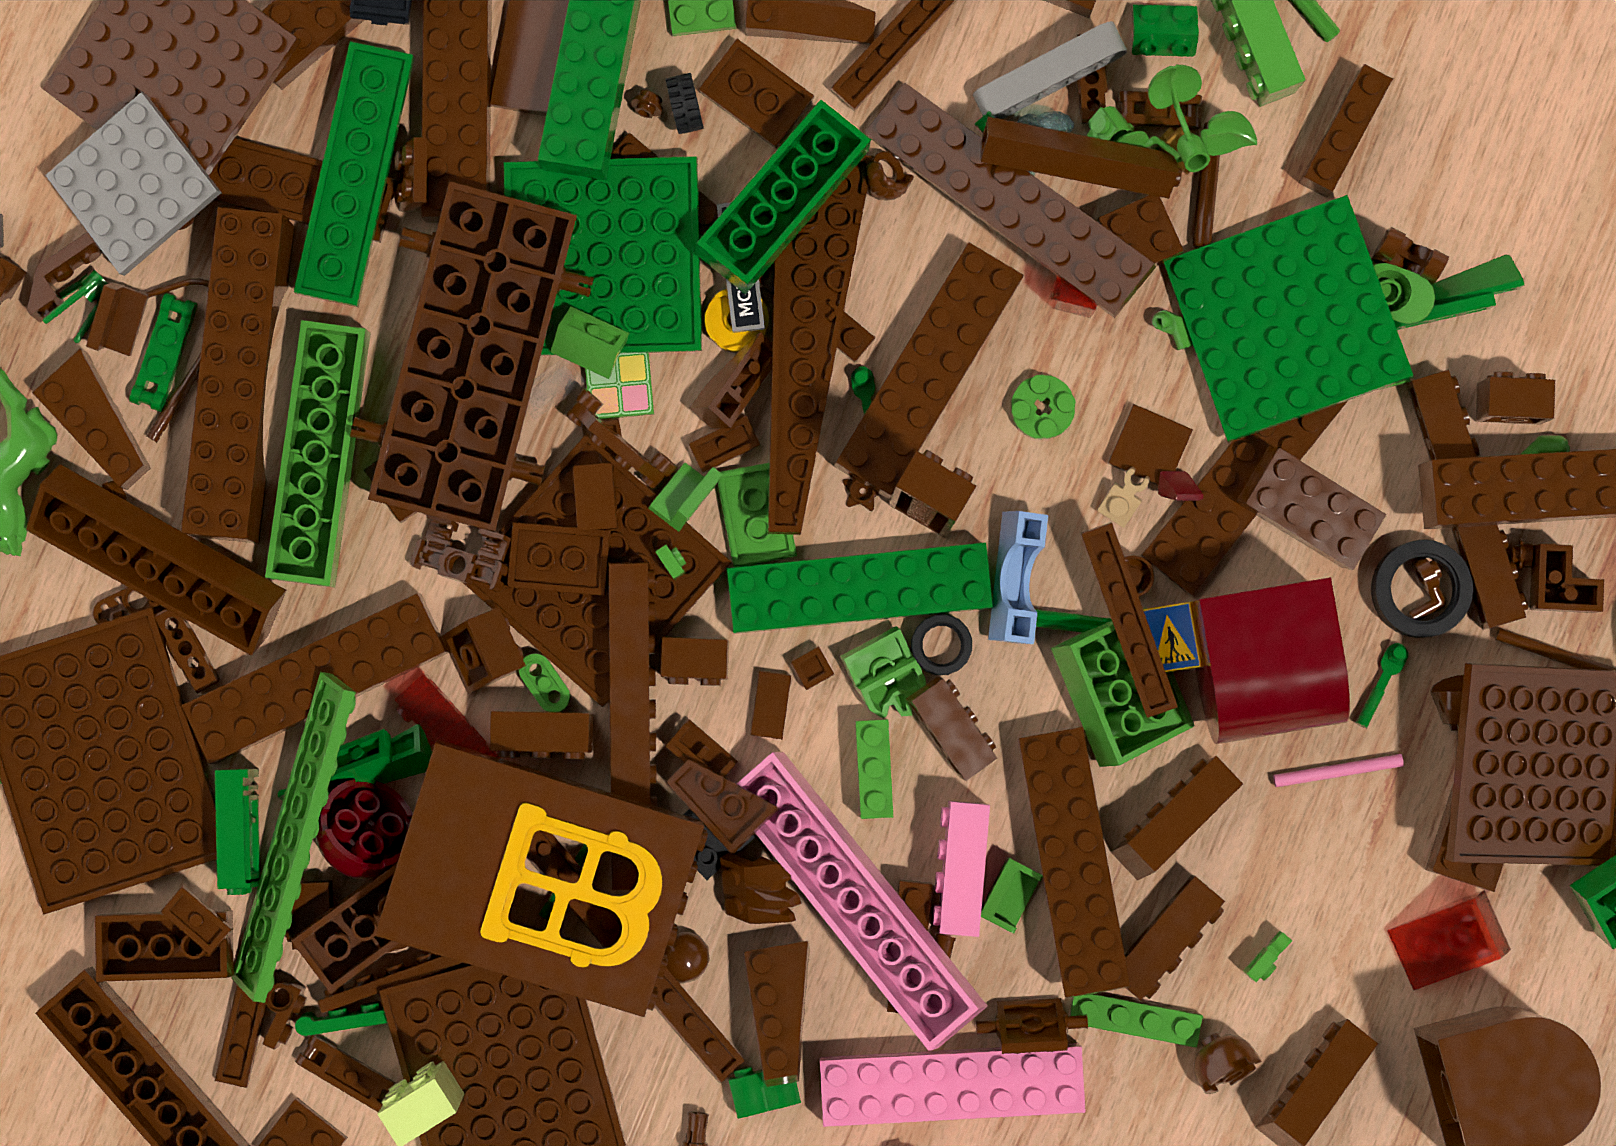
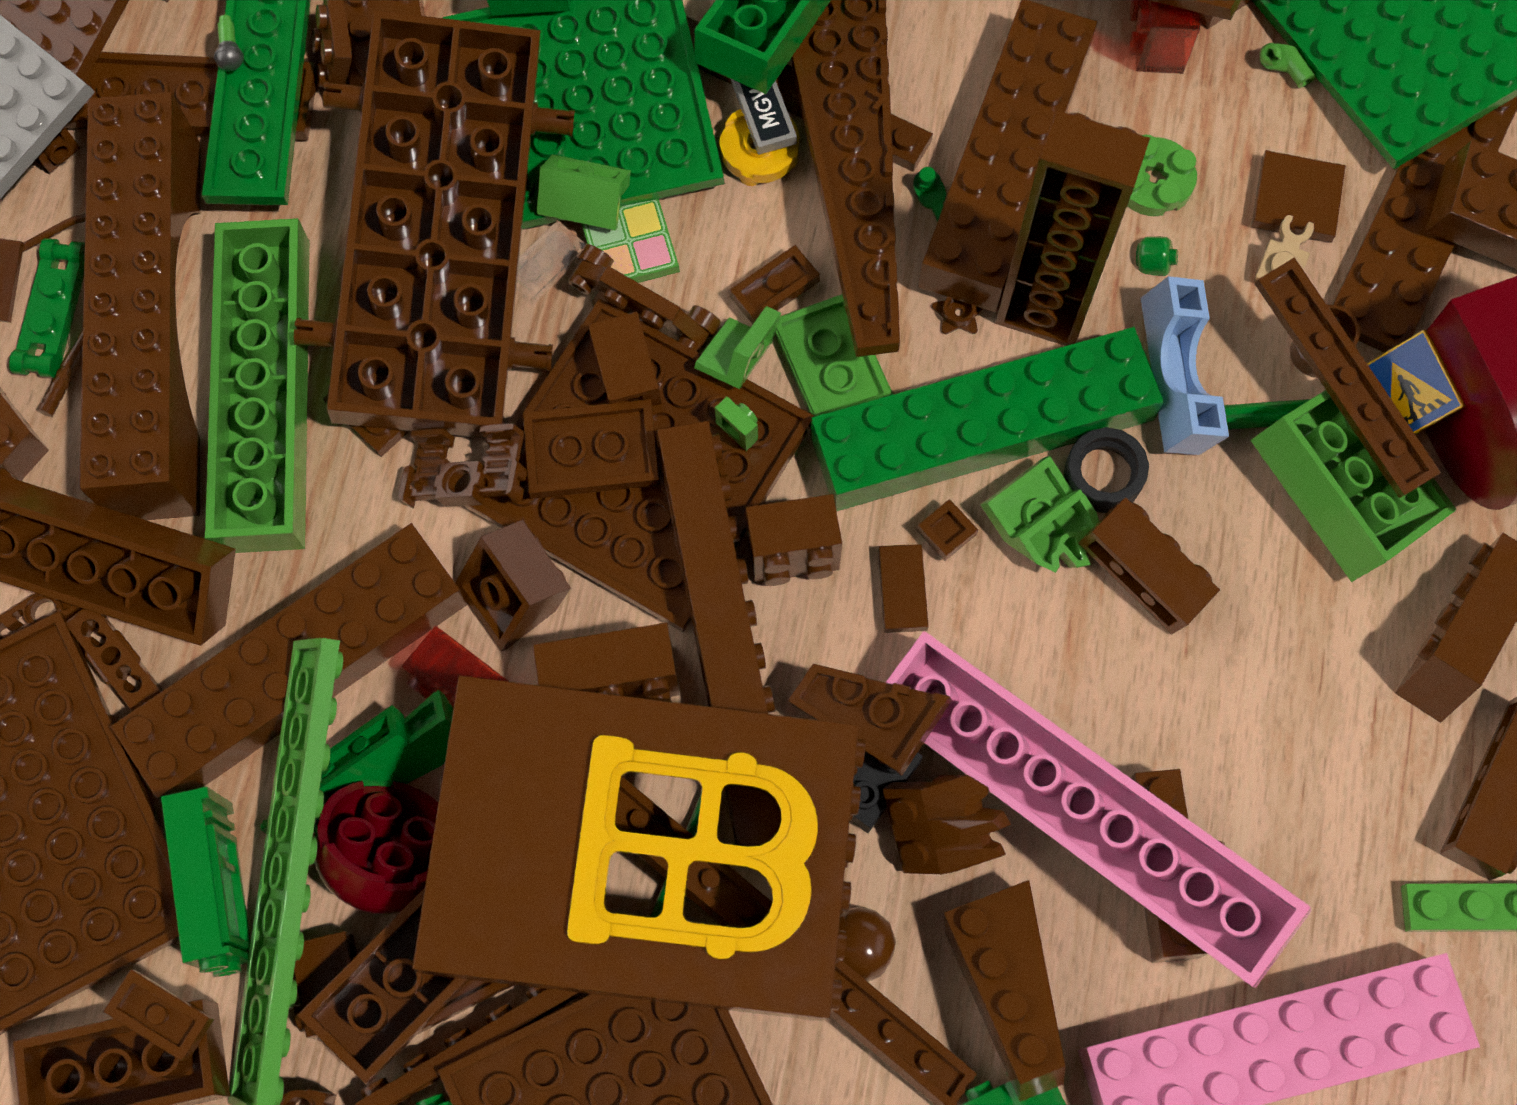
camera: 10 degrees left, 15 degrees down
(329, 174) = (228, 54): none -> flat silver piece
(547, 681) = (604, 612): bright green plate -> none
(696, 745) = (807, 649): reddish brown hinge -> none
(734, 384) = (773, 210): reddish brown slope -> none
(874, 769) = (1059, 639): bright green brick -> none
(962, 869) = (1214, 739): bright pink brick -> none
(1010, 894) = (1281, 769): bright green panel -> none
(1026, 473) = (1156, 255): none -> green piece
(1032, 1025) = (1367, 940): reddish brown plate -> none
(1074, 862) = (1365, 709): reddish brown brick -> none
(1178, 486) = (1350, 229): dark red slope -> none

